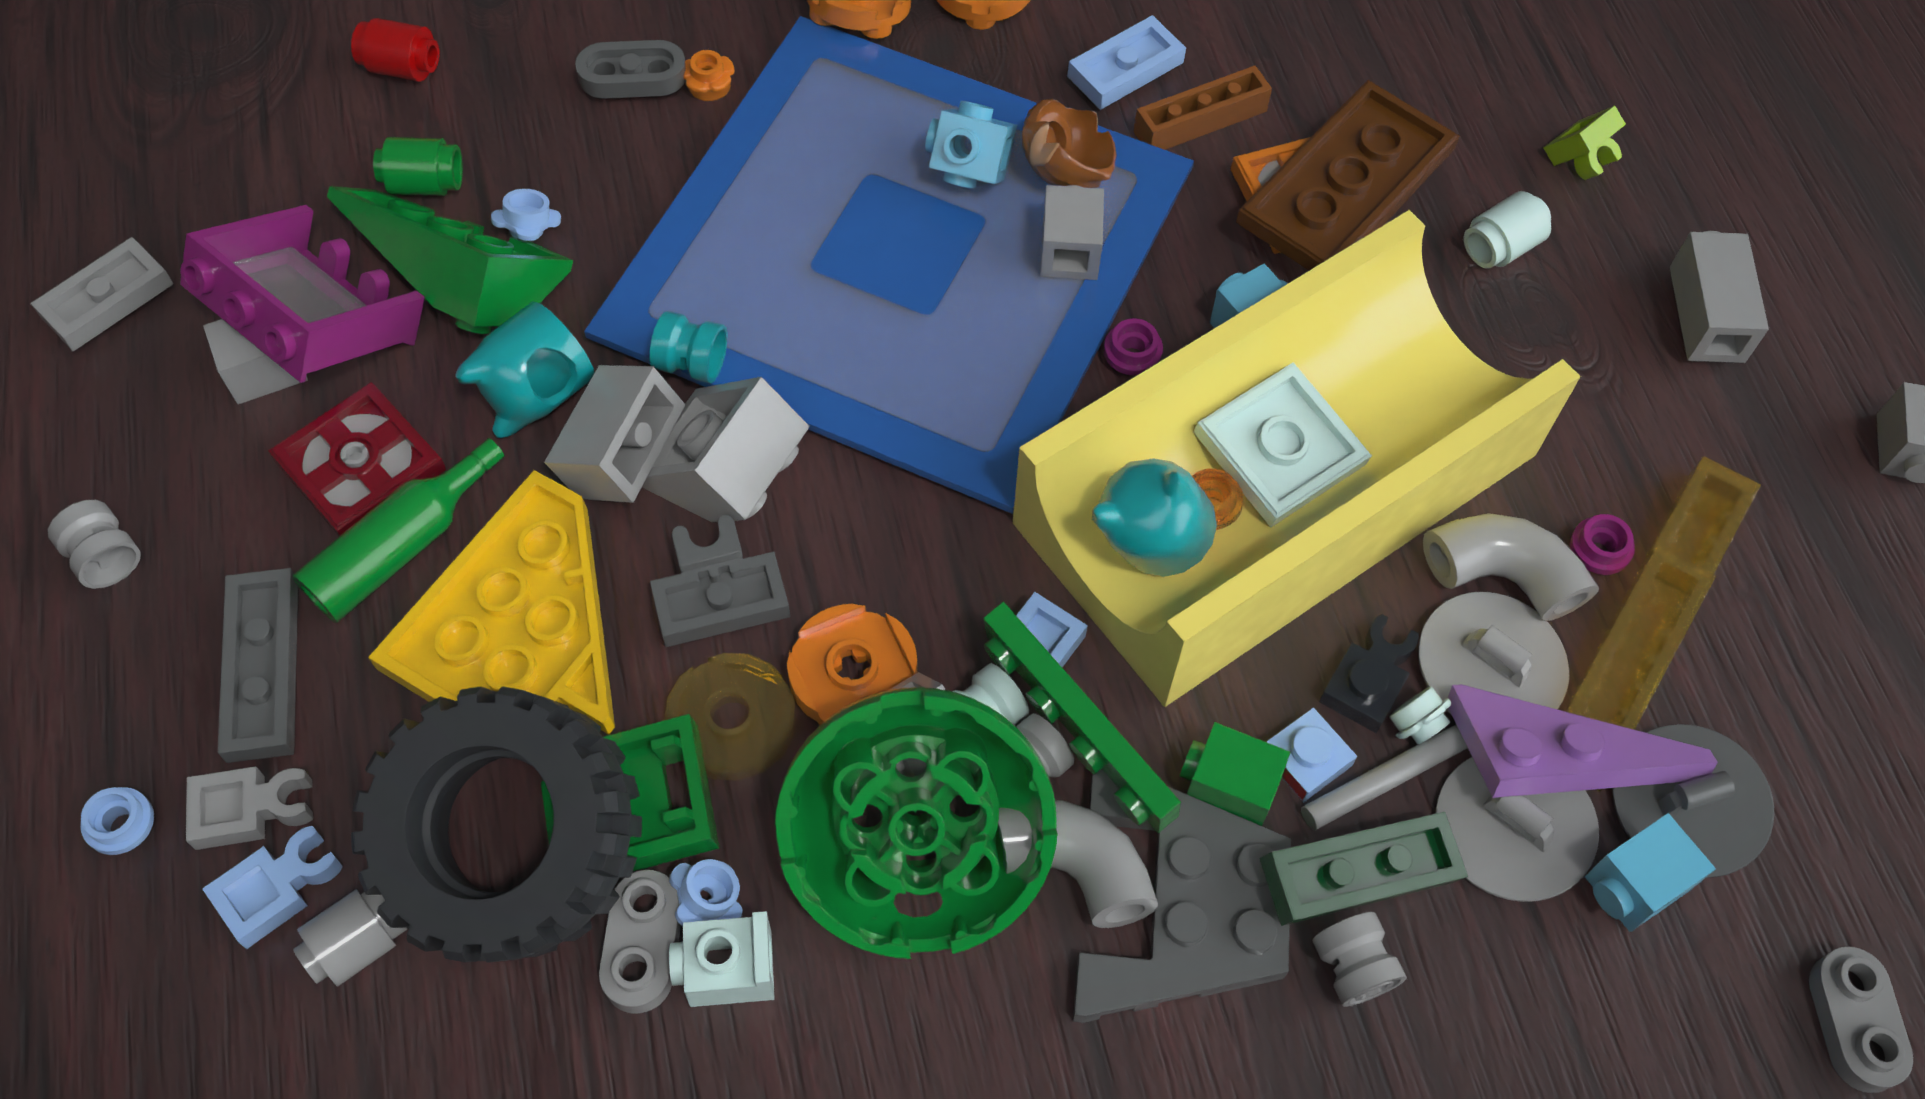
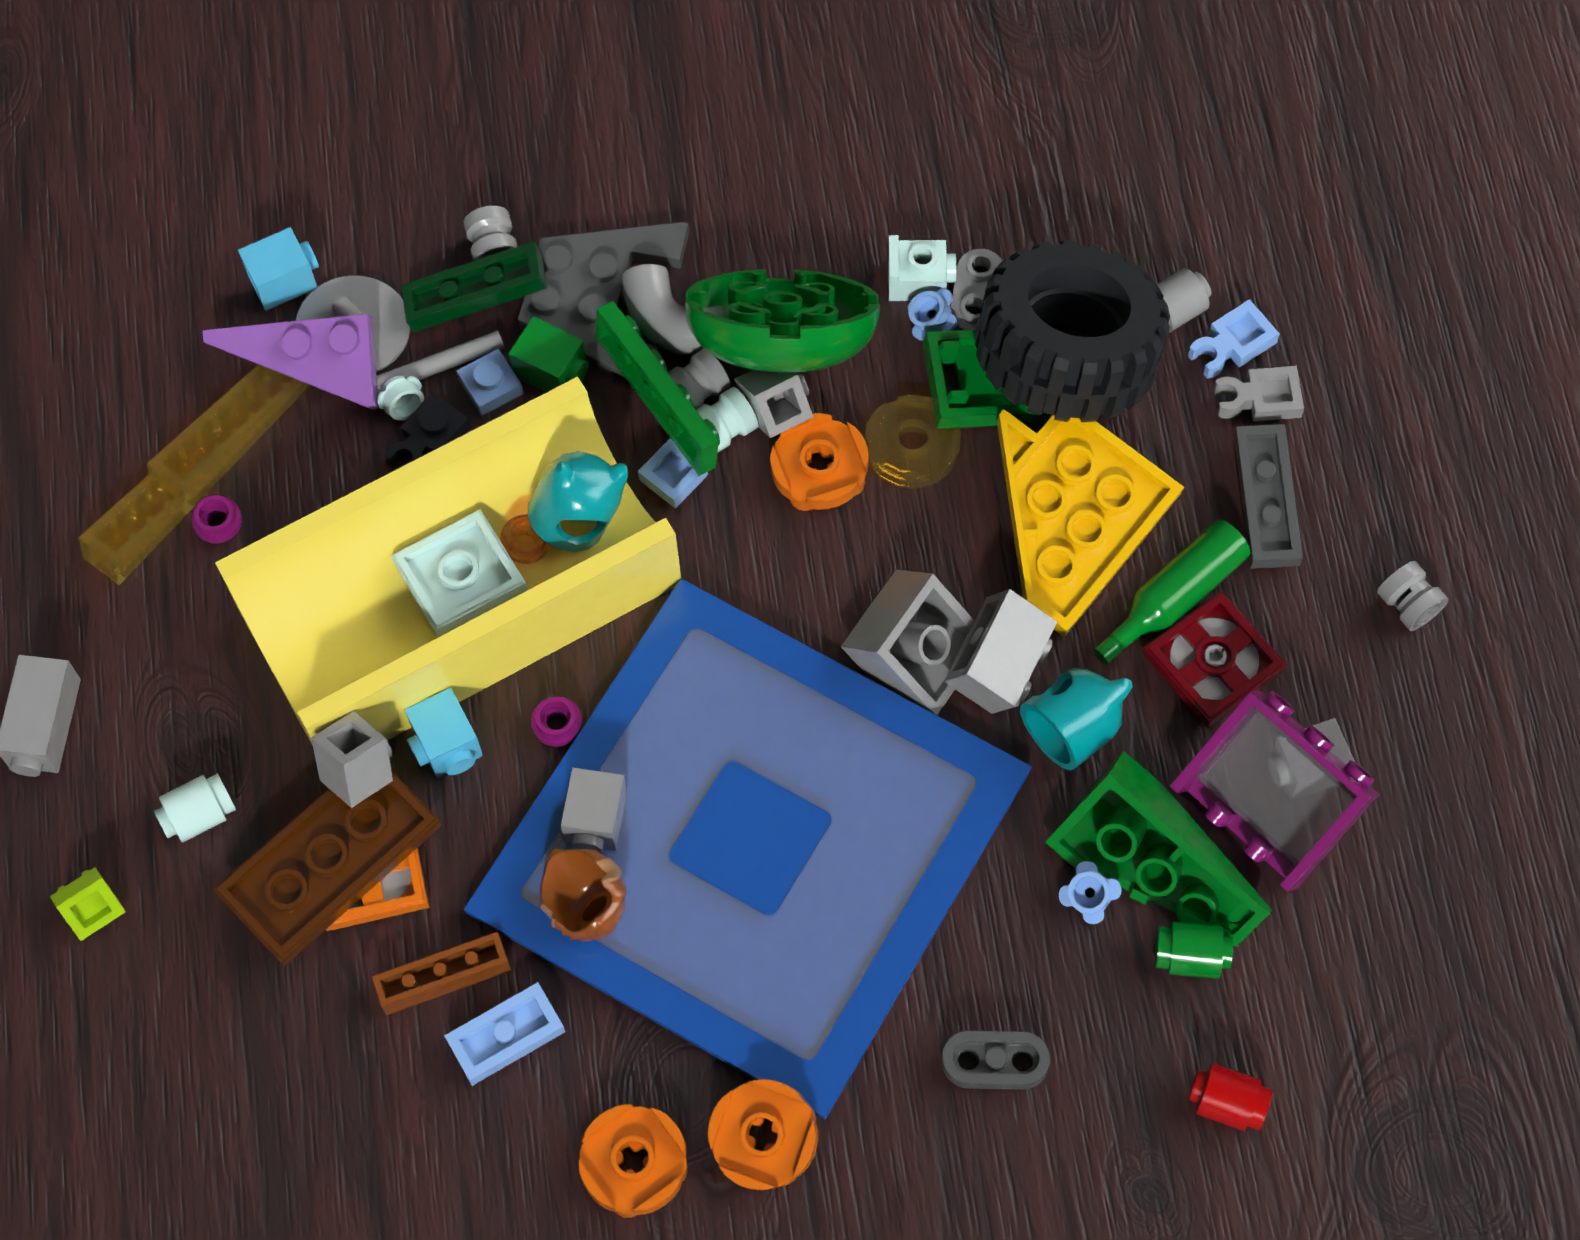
camera: 170 degrees left, 5 degrees up
(102, 293) = (1460, 835): light grey plate -> none
(106, 807) = (1355, 383): light blue plate -> none
(688, 346) = (939, 718): teal wheel -> none
(708, 75) = (909, 1064): orange plate -> none
(717, 588) = (920, 528): dark grey plate -> none
(990, 143) = (673, 900): medium azure brick -> none
(1348, 212) = (352, 759): none -> light grey brick
(1494, 647) = (330, 442): light grey shield -> none
(1514, 550) = (274, 494): light grey cylinder -> none
(1722, 812) = (209, 309): dark grey shield -> none
(1857, 1016) = (167, 186): light grey plate -> none

